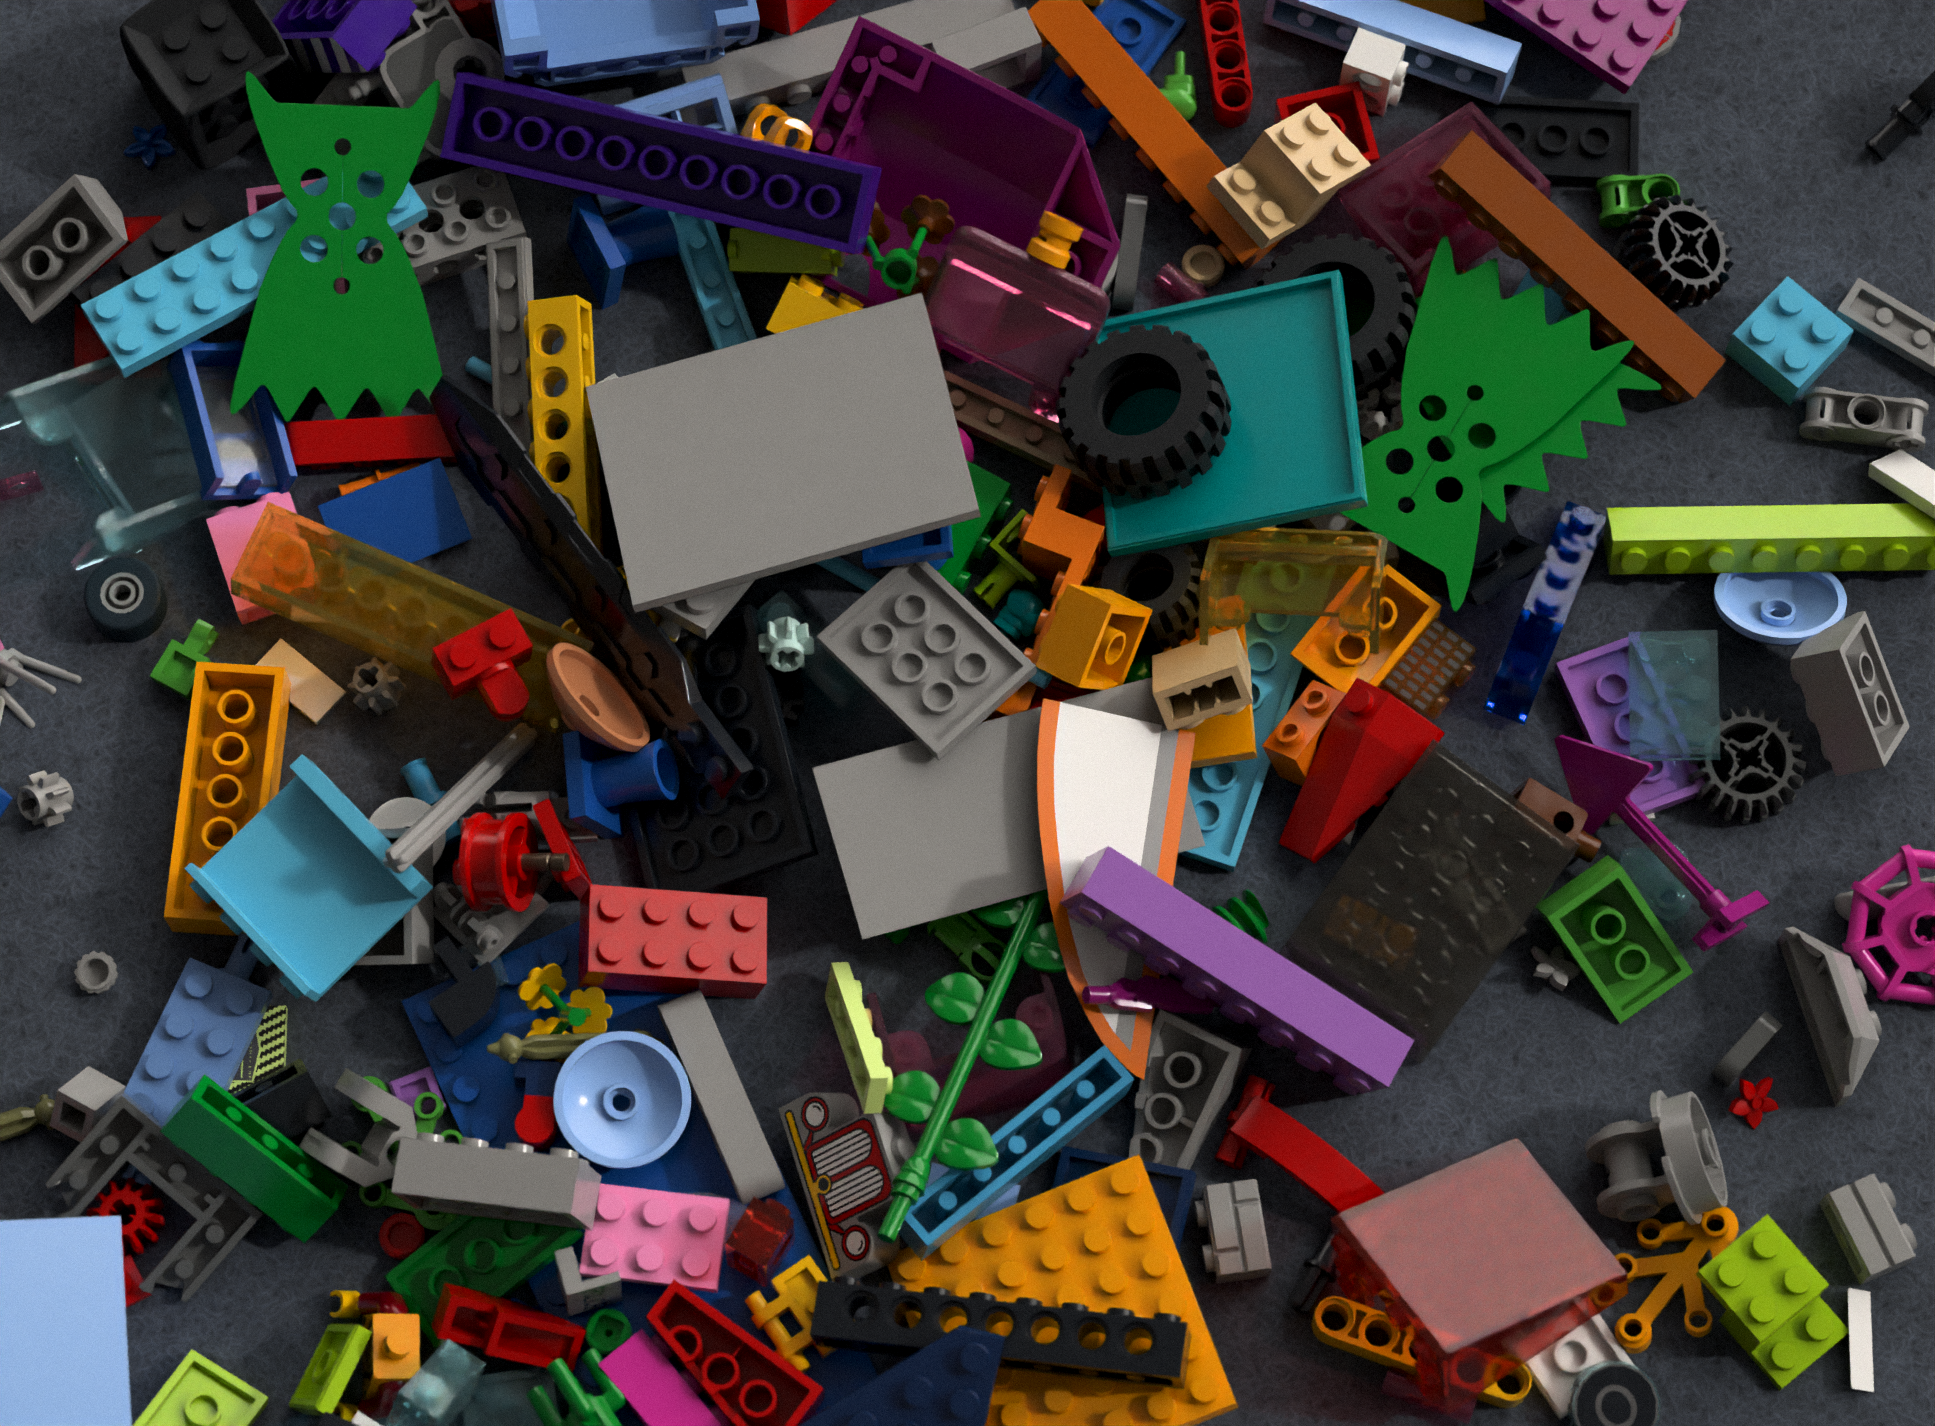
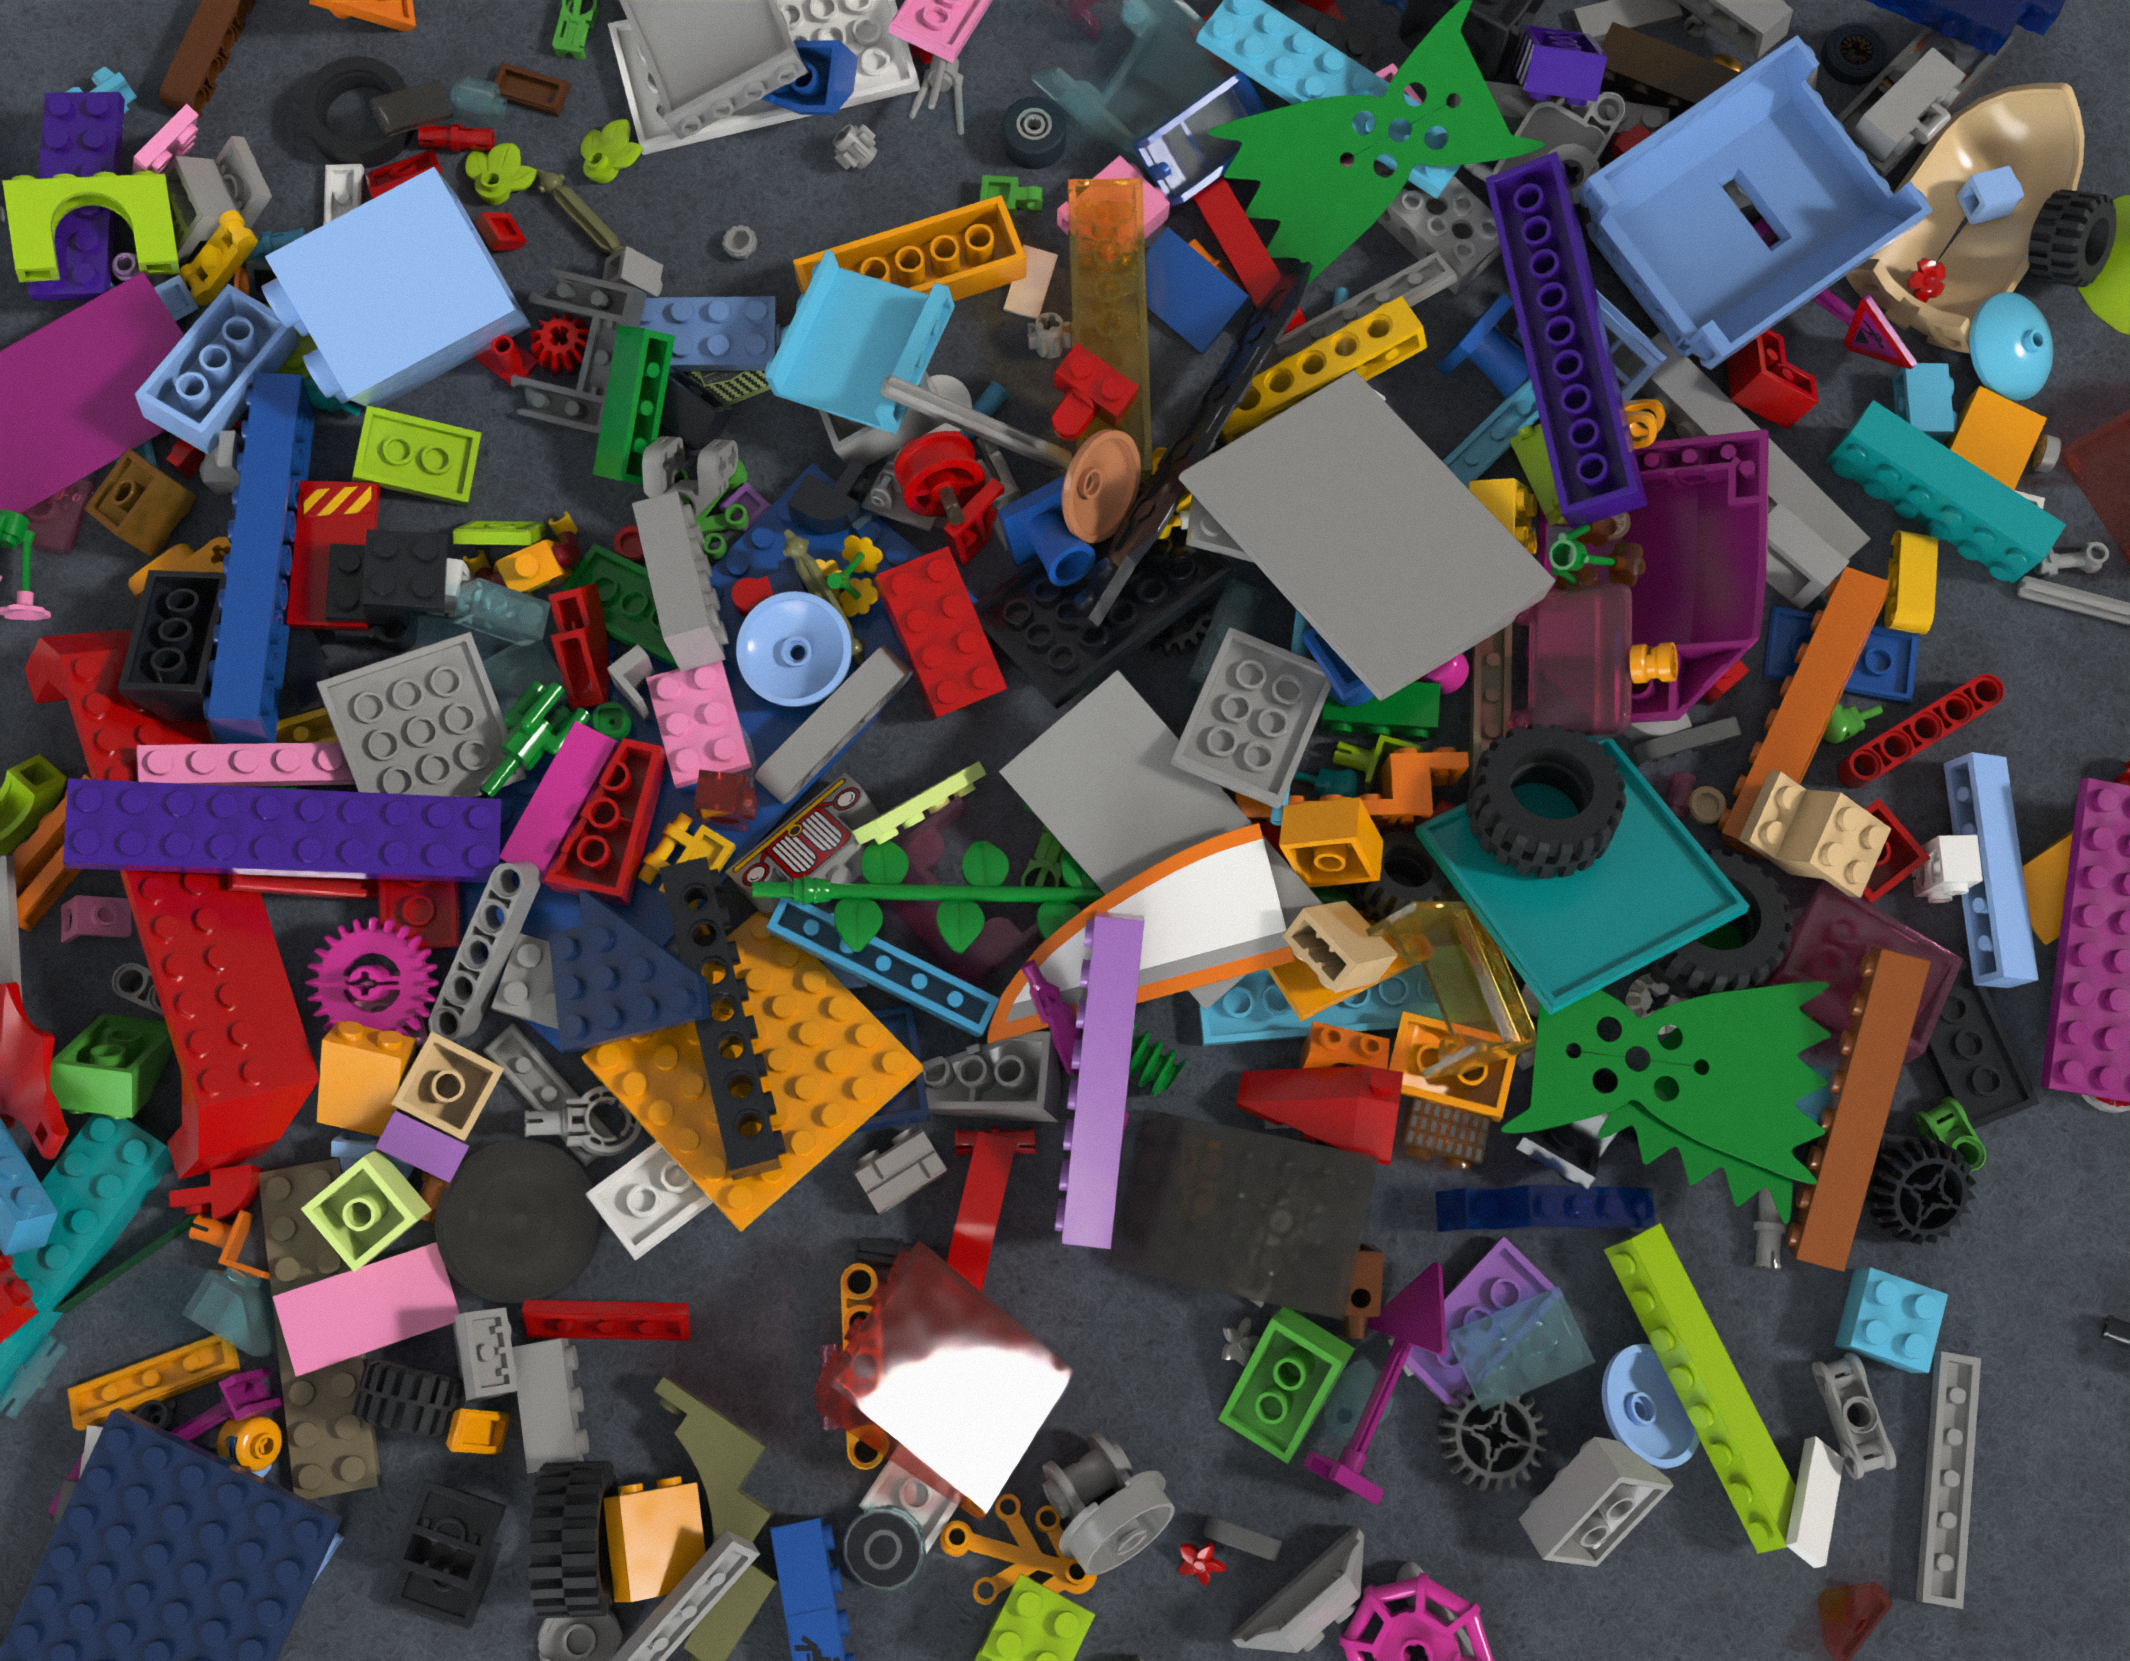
camera: 60 degrees right, 5 degrees up
(786, 644) = (1214, 609): light aqua gear -> none
(1656, 412) = (1769, 1232): none -> light grey pin

